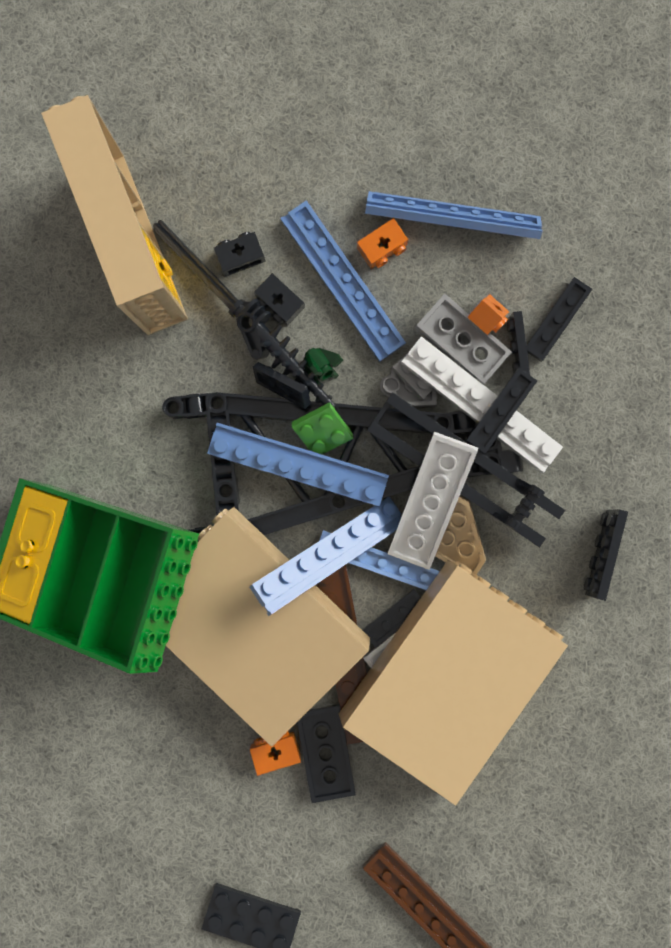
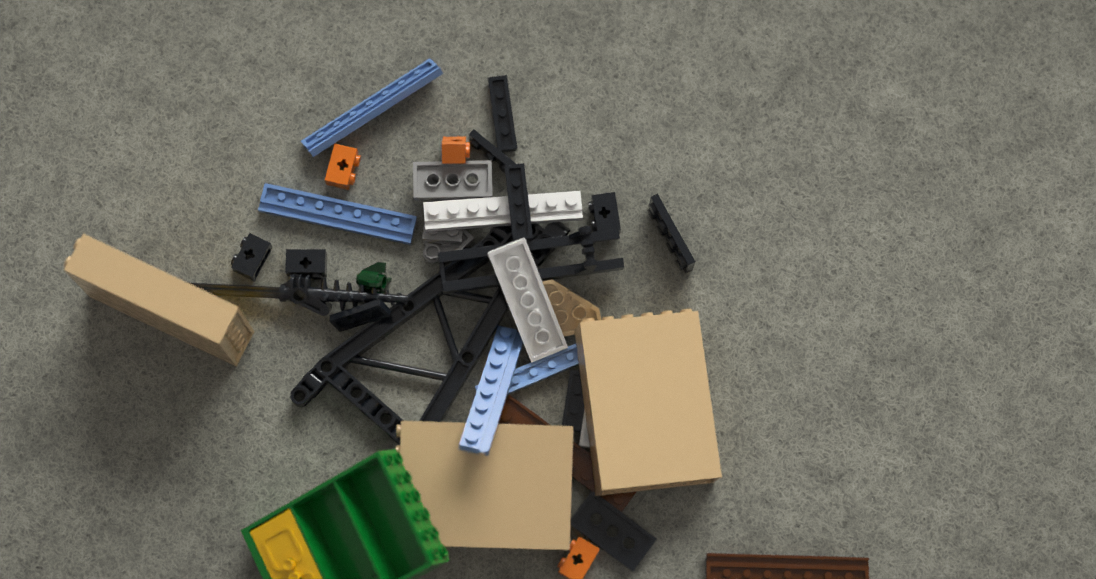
camera: 50 degrees left, 10 degrees down
(298, 464) = (418, 356): medium blue plate -> none
(322, 429) = (414, 320): bright green plate -> none
(575, 480) = (607, 203): none -> black brick

